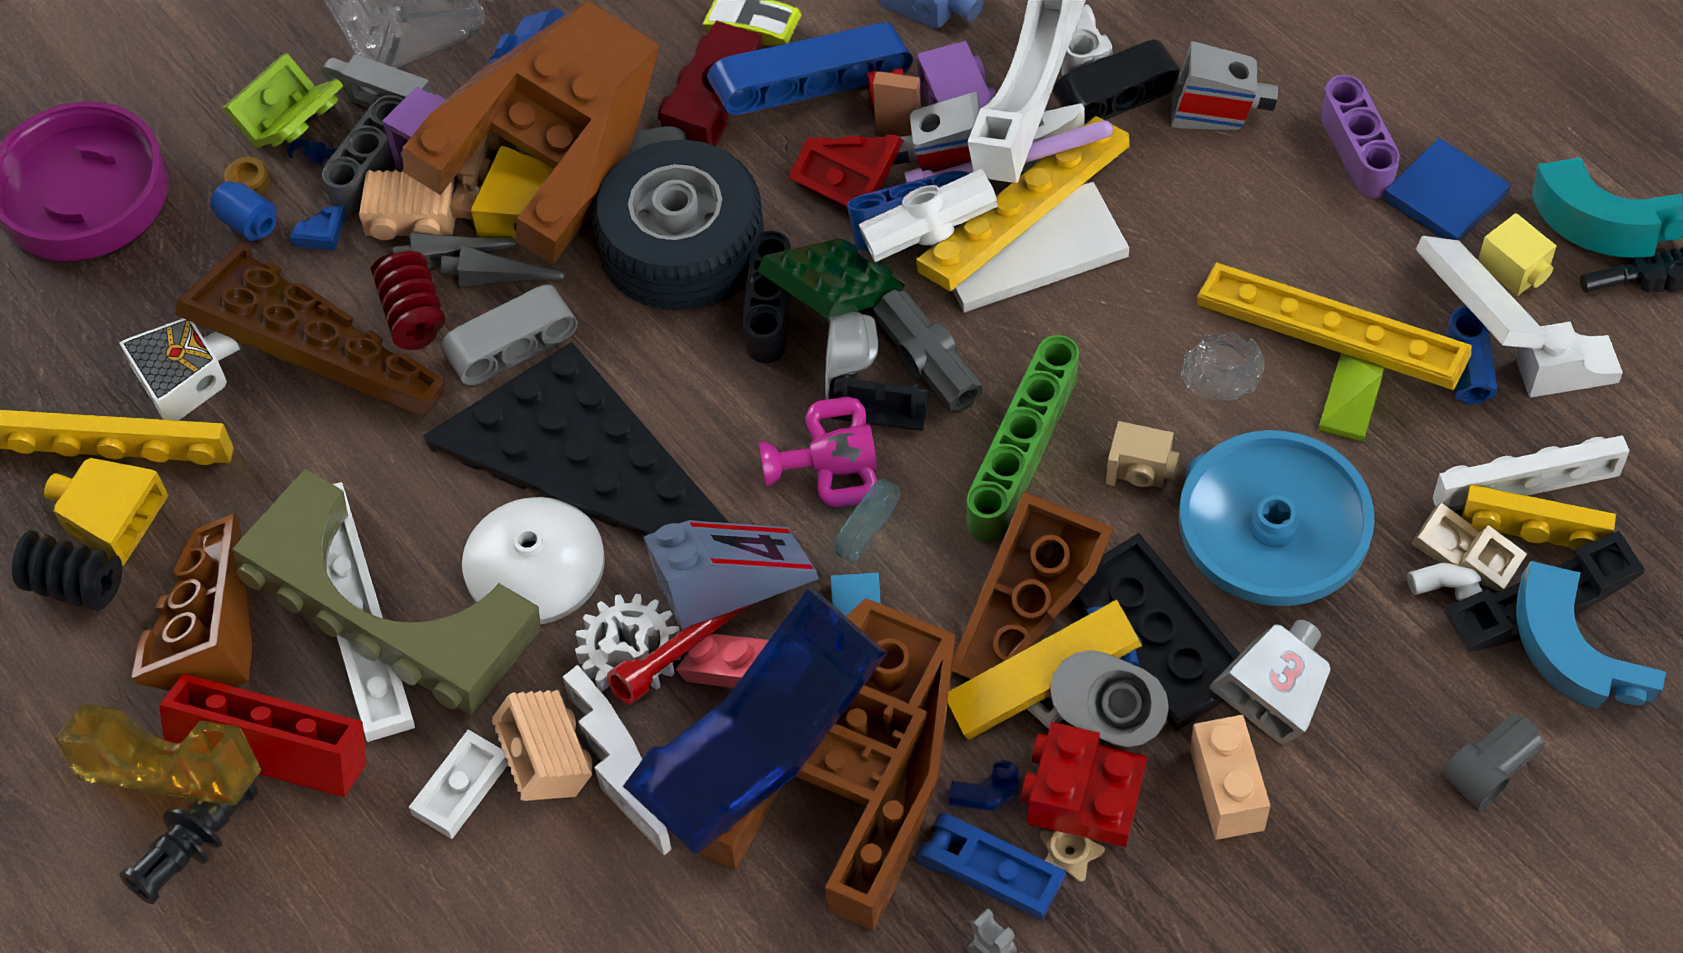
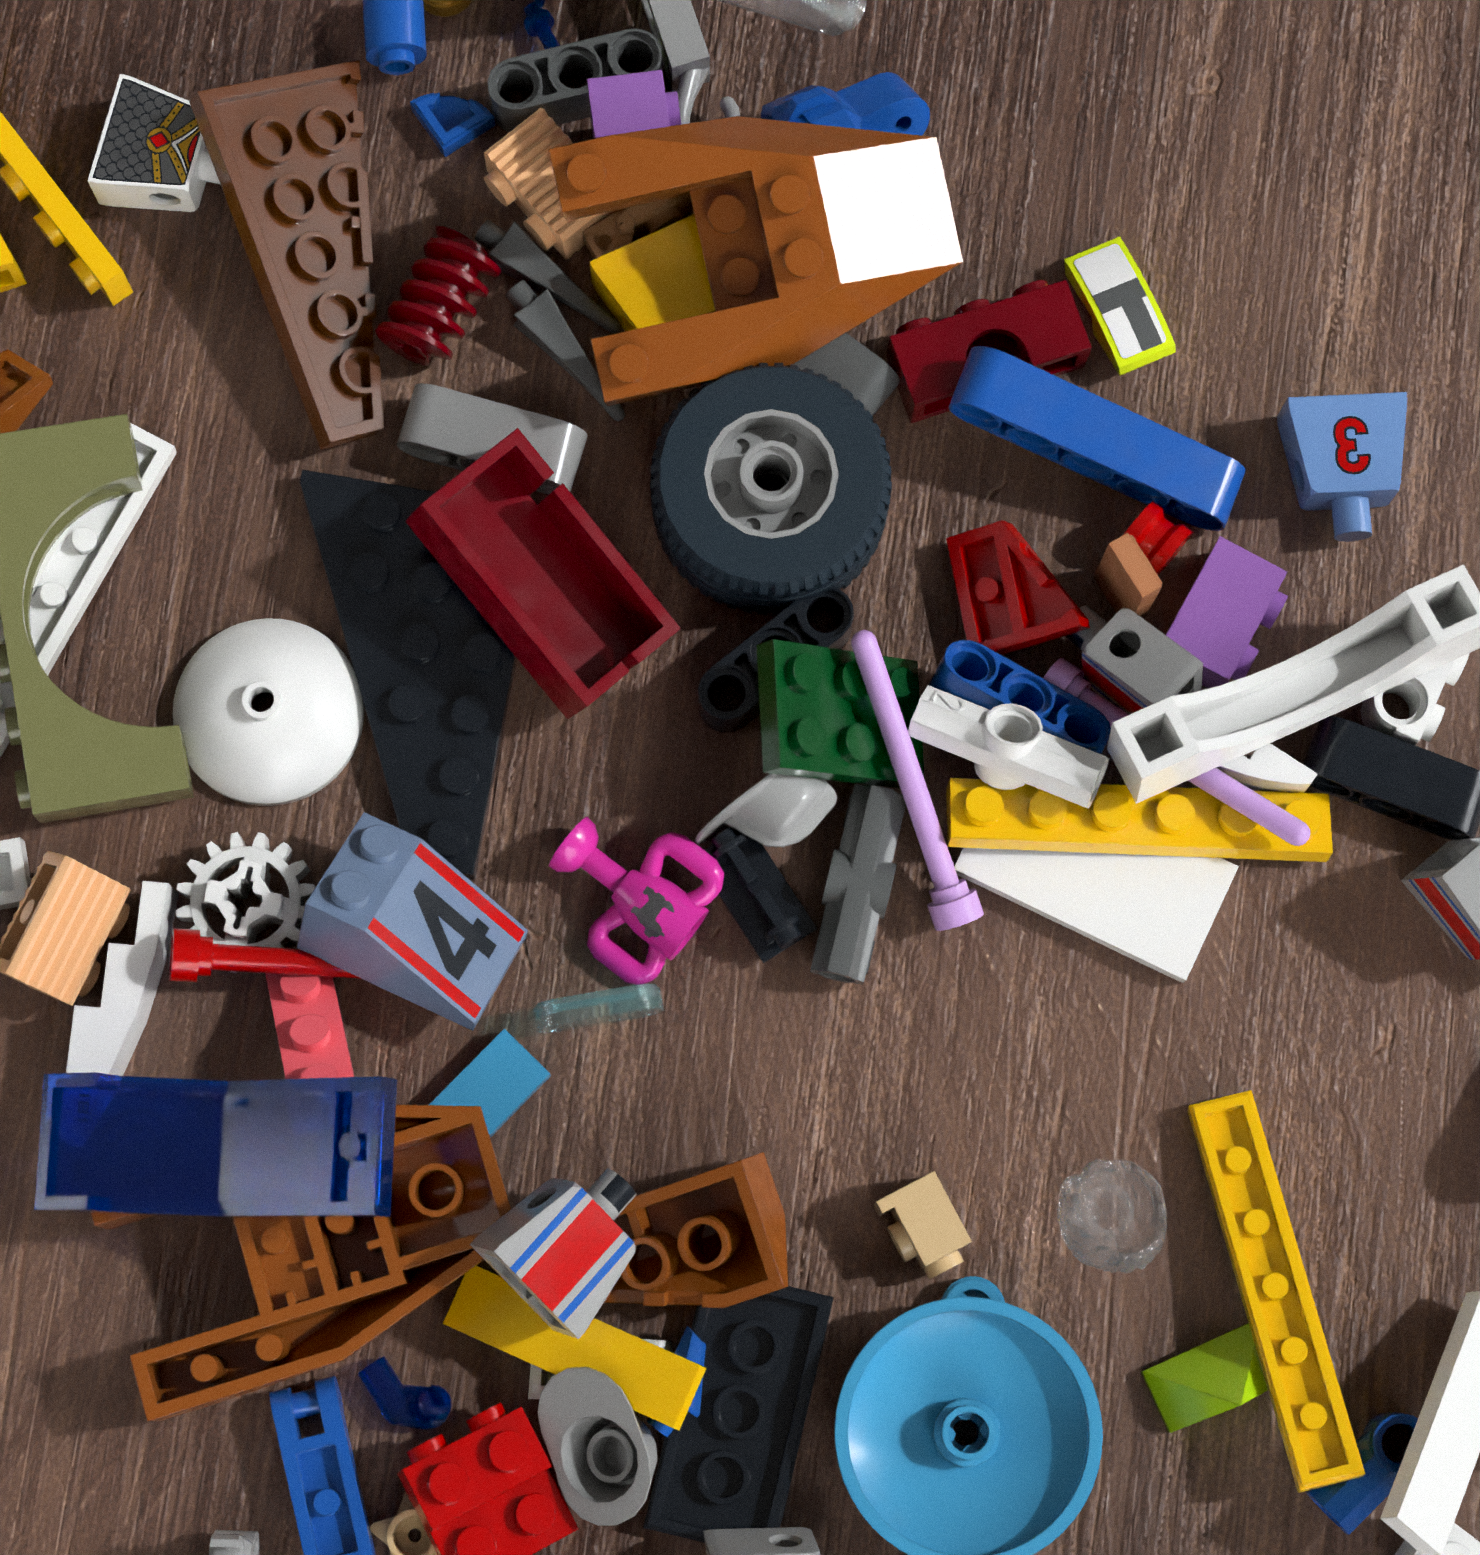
camera: 40 degrees right, 20 degrees up
(613, 350) = (542, 574): none -> dark red piece
(978, 313) = (951, 898): none -> lavender piece
(987, 616) = (563, 1249): none -> torso
(1022, 455) = (867, 1061): bright green beam -> none

